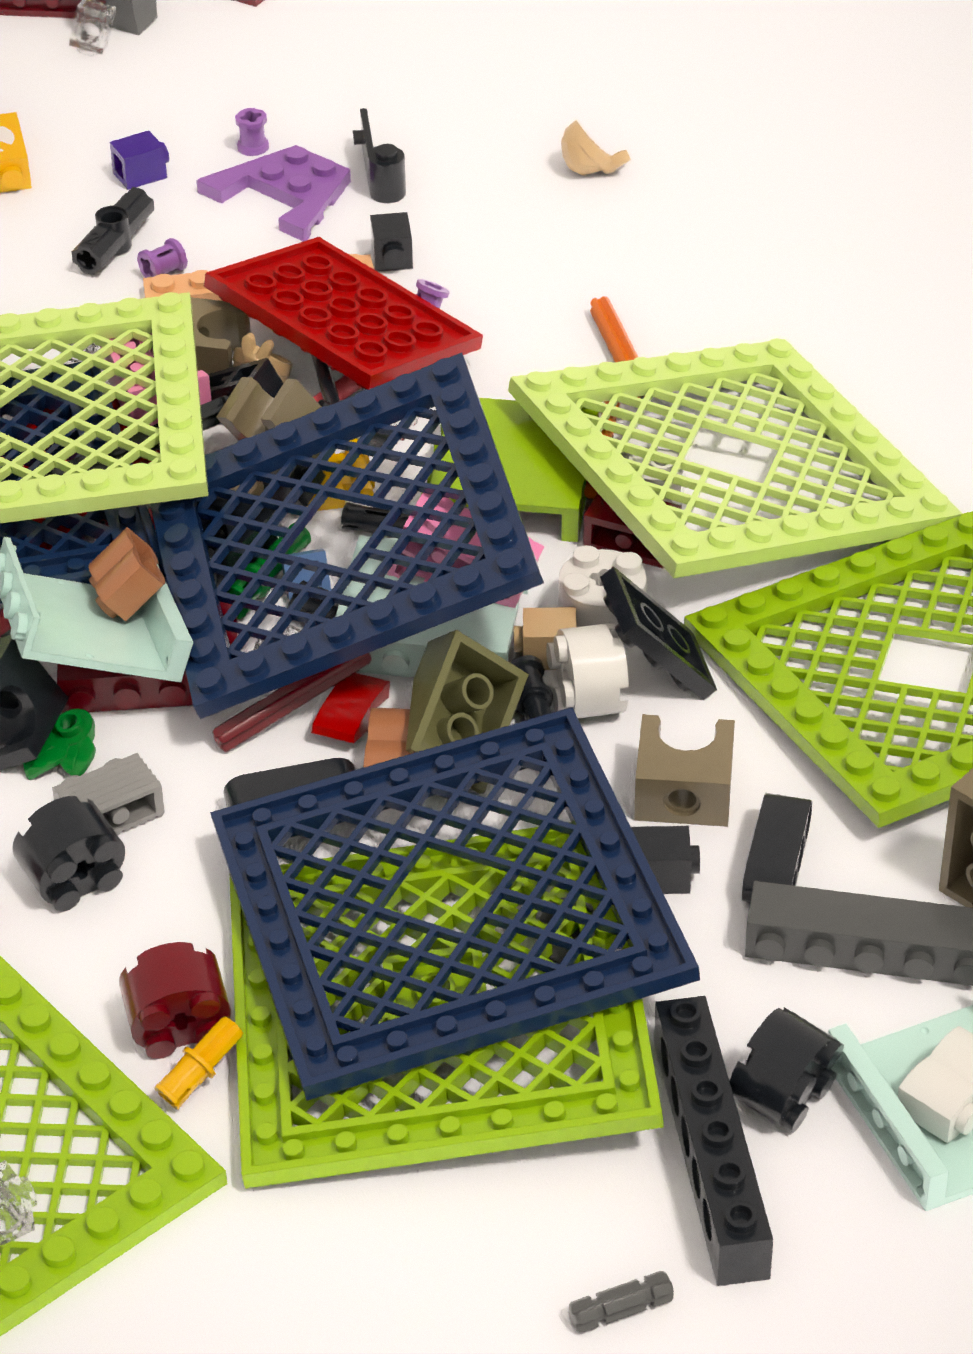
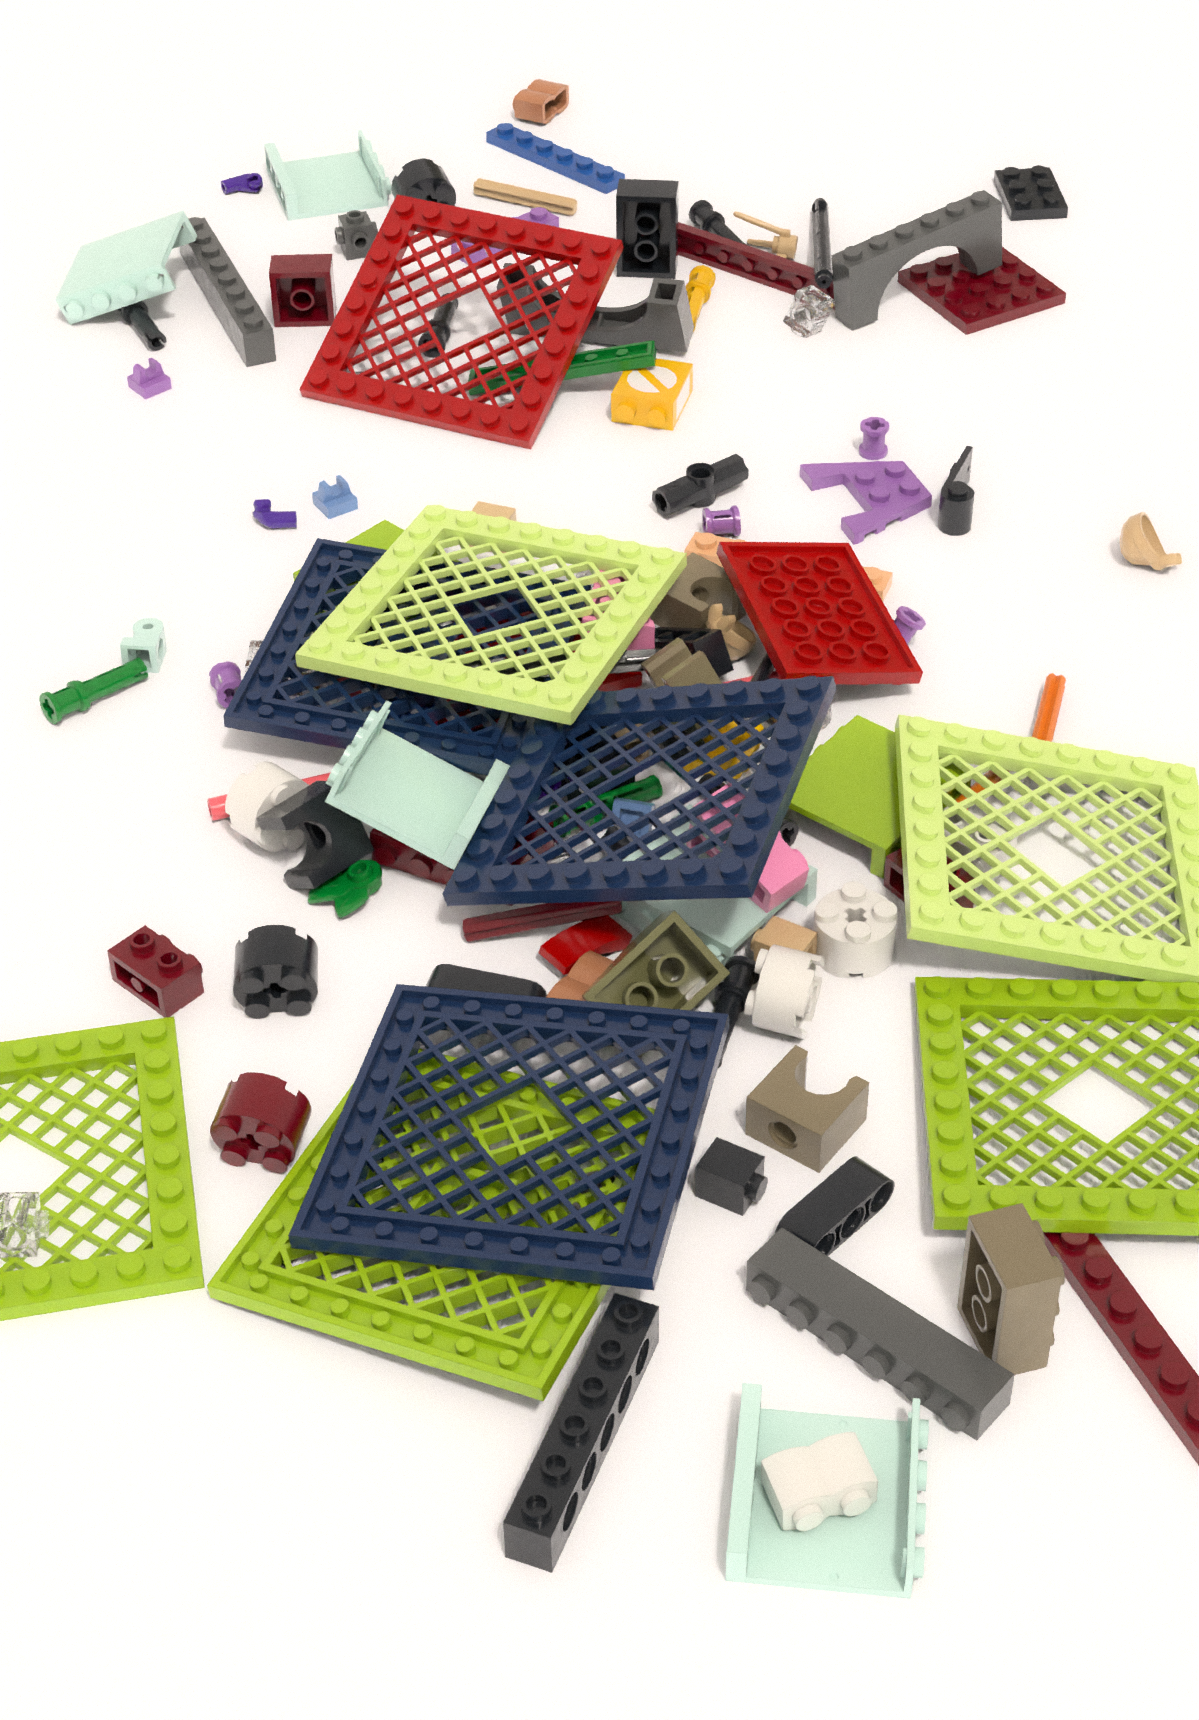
camera: 30 degrees right, 0 degrees up
(120, 789) = (348, 942): light grey brick -> none
(125, 575) = (467, 766): nougat brick -> none
(139, 159) = (766, 433): dark purple brick -> none
(198, 1063) = (245, 1181): yellow axle -> none
(391, 241) = (916, 567): black brick -> none
(621, 1301) = (414, 1530): dark grey axle -> none
(657, 633) = (862, 981): black plate -> none
(786, 1068) = (683, 1399): black brick -> none

